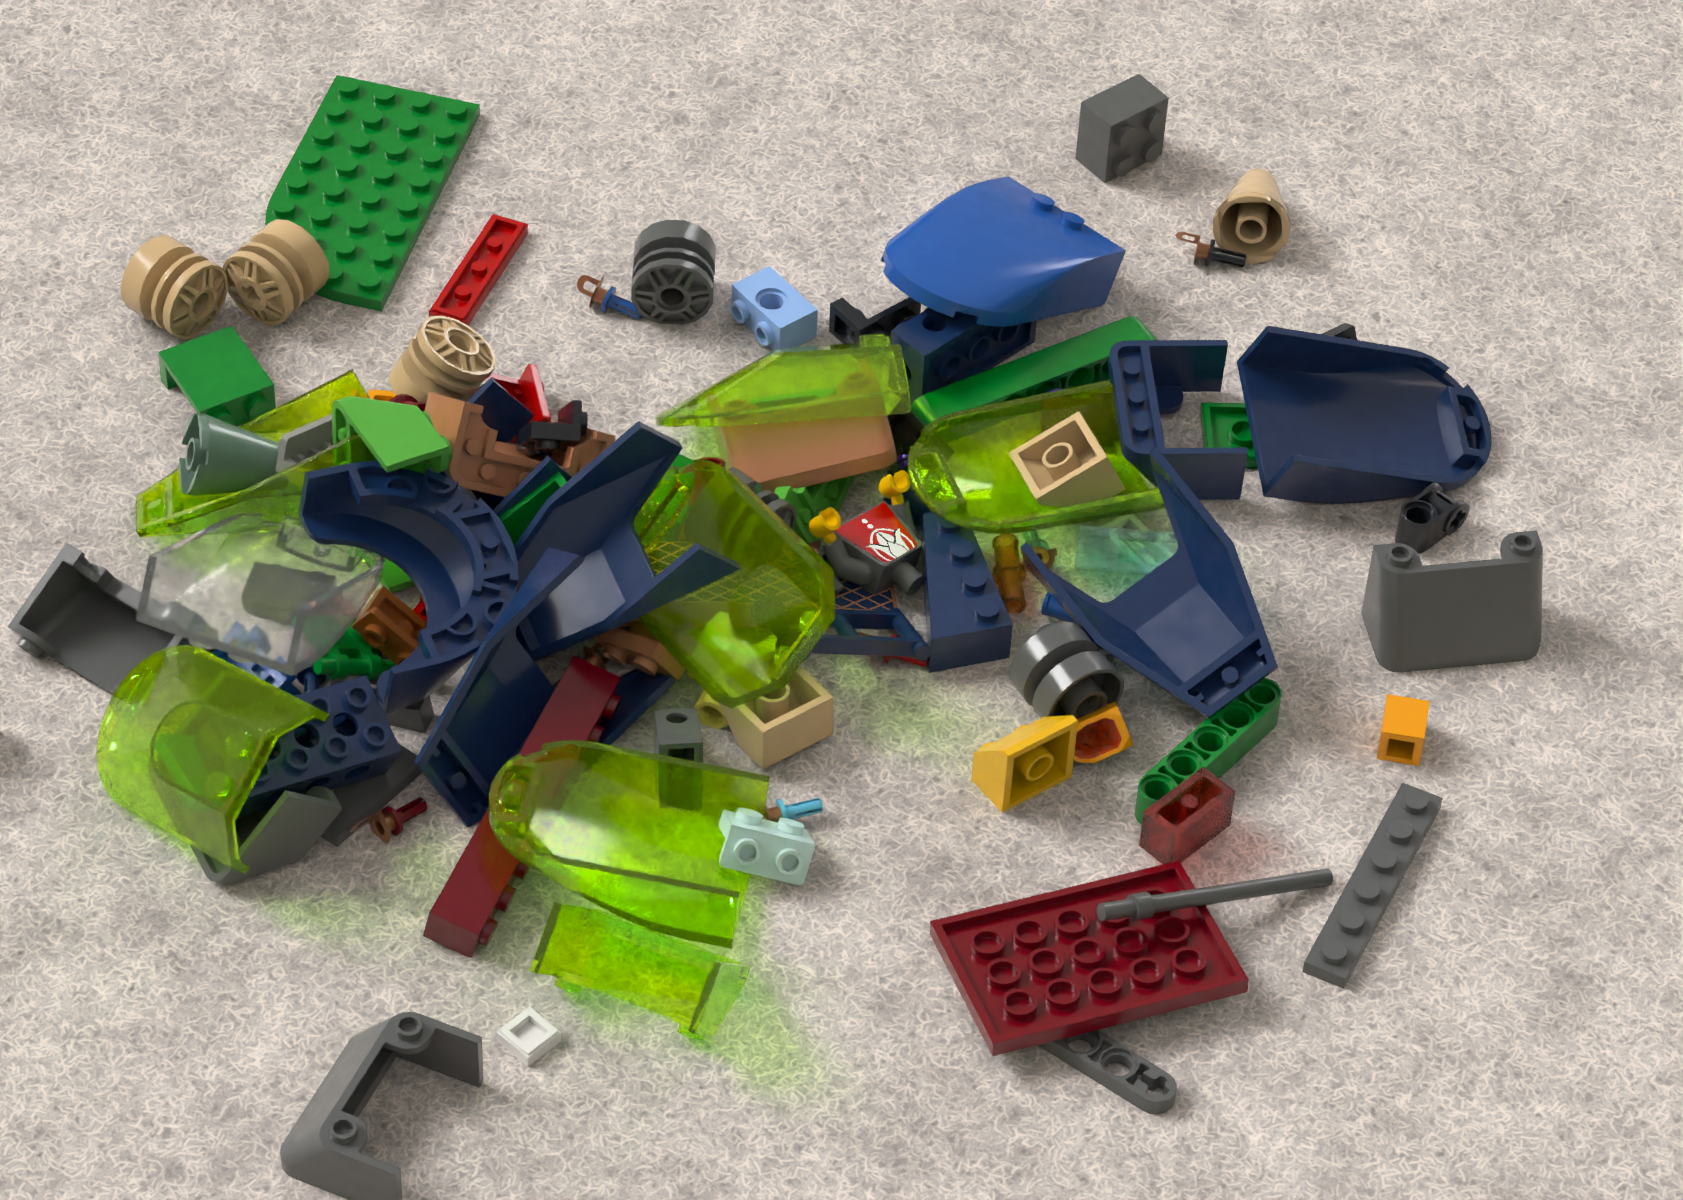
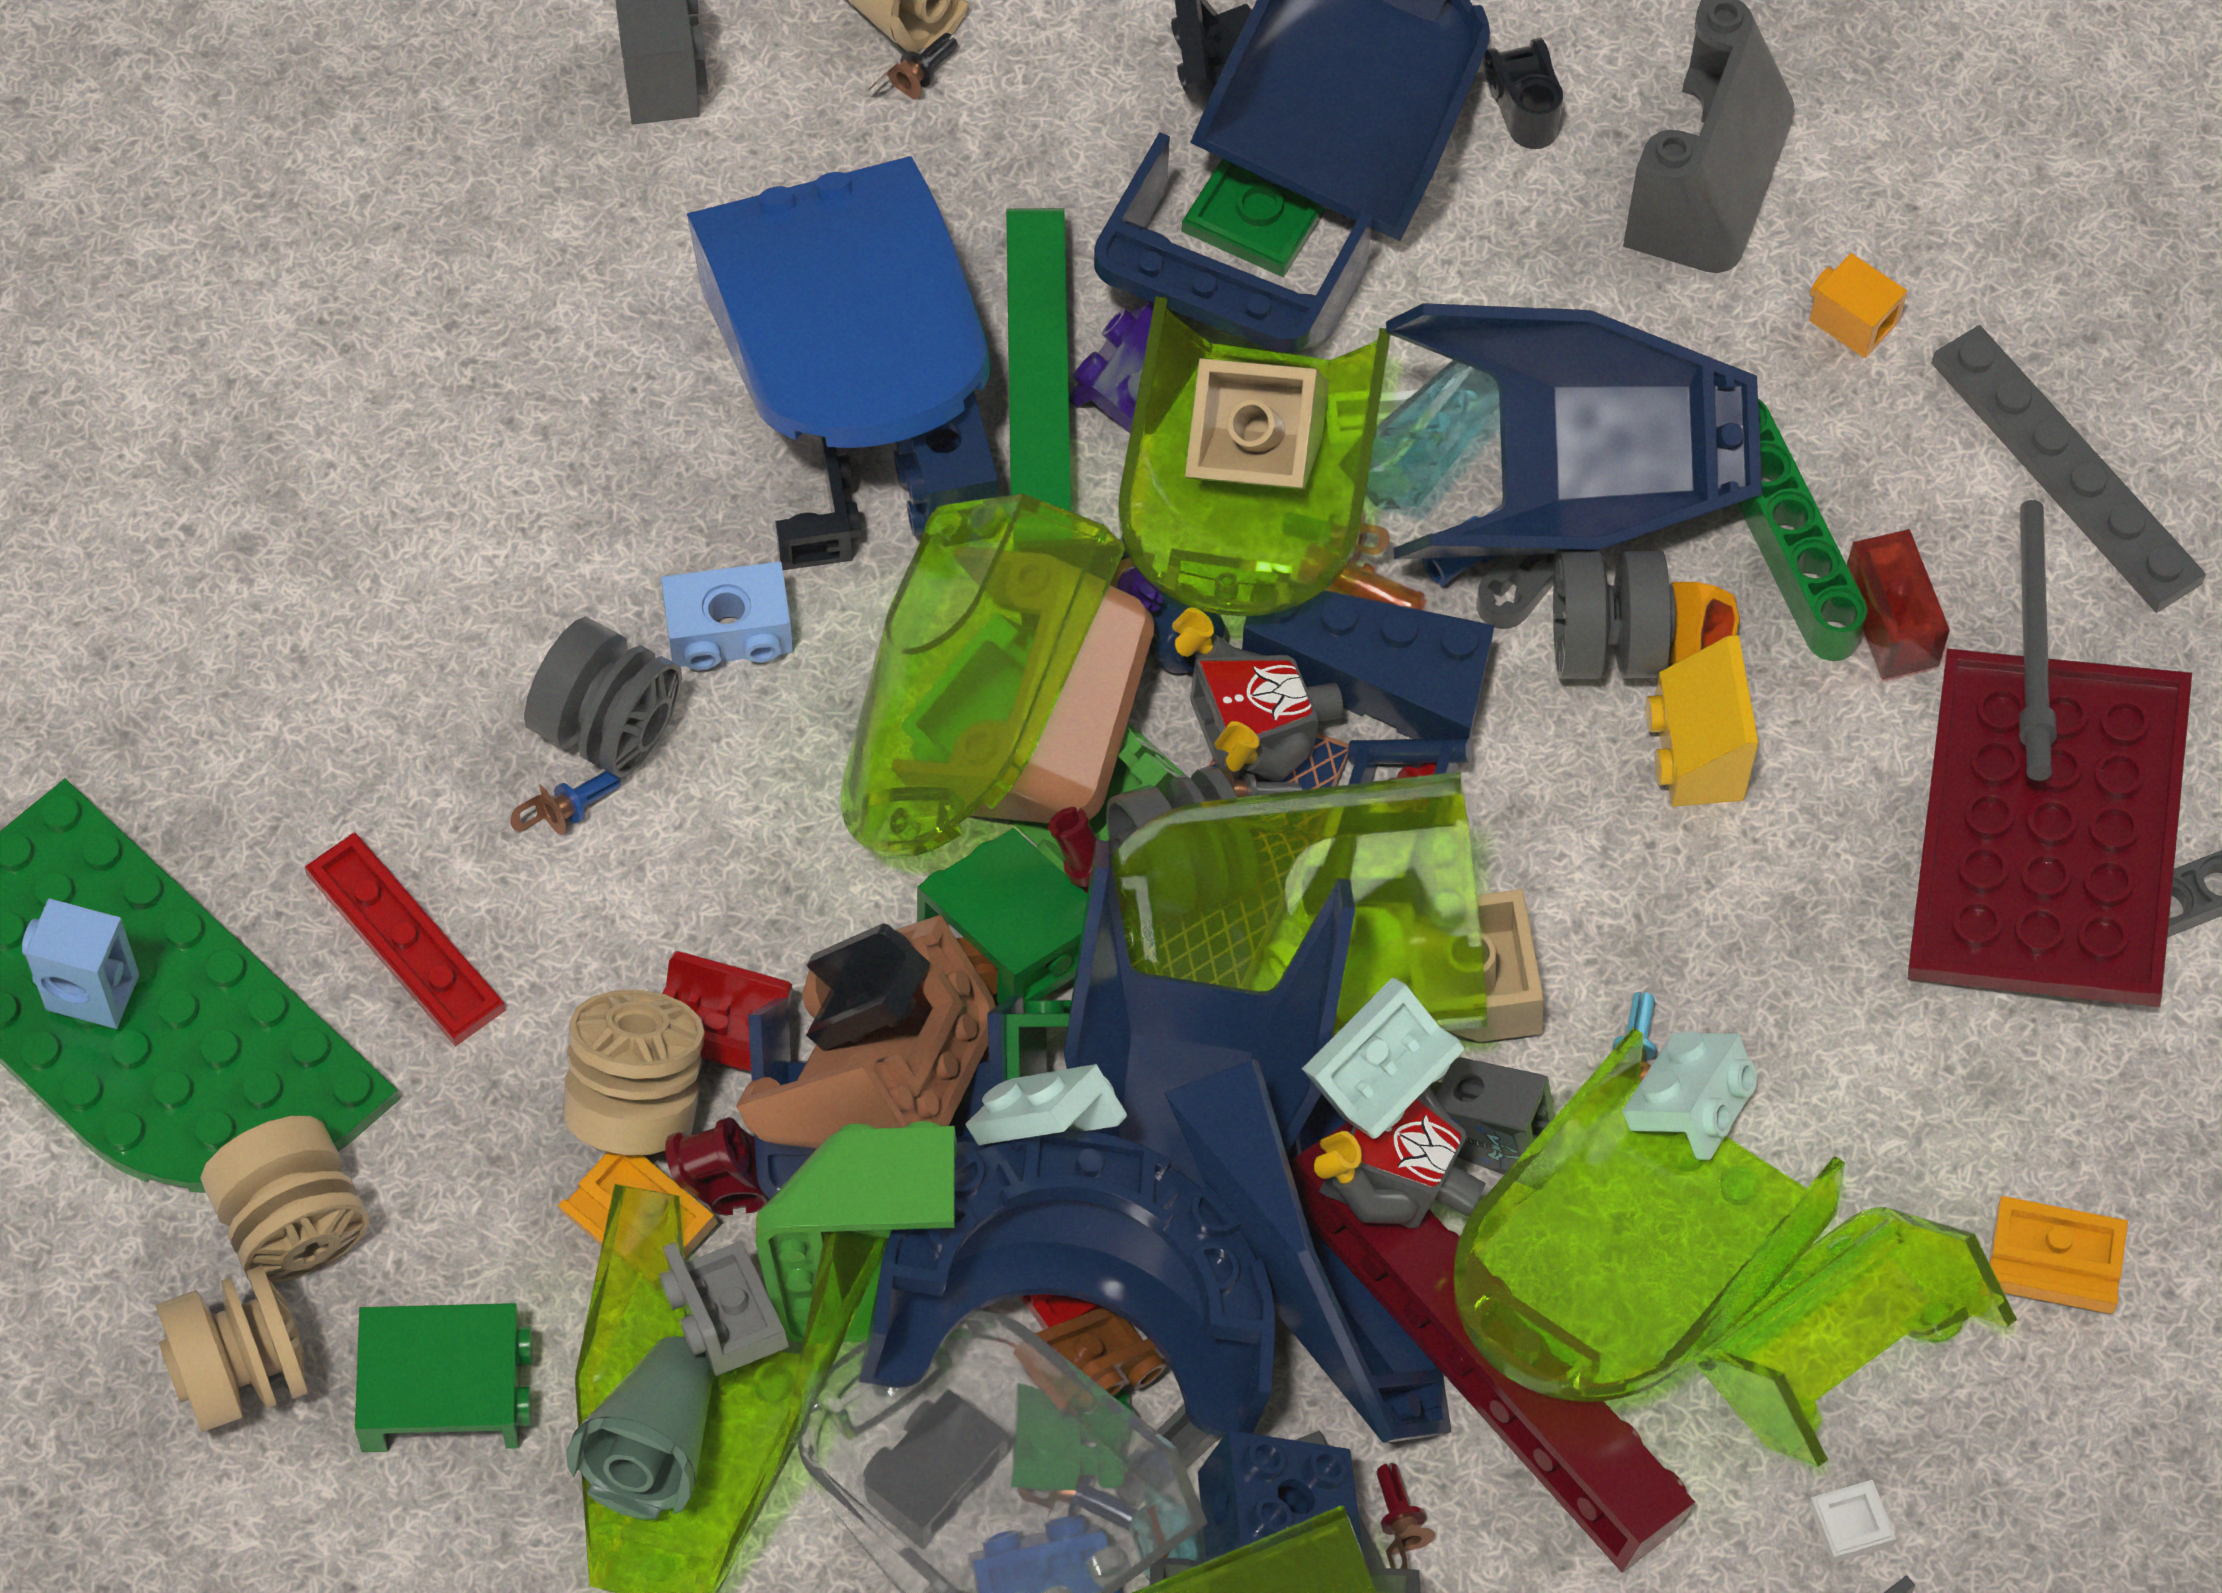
camera: 60 degrees left, 15 degrees up
(354, 132) = (81, 962): none -> light blue brick
(501, 491) = (1047, 1105): none -> light aqua bracket
(603, 691) = (1402, 1169): none -> torso
(637, 630) = (1382, 1059): none -> light aqua bracket
(780, 1070) = (2058, 1254): none -> light orange plate

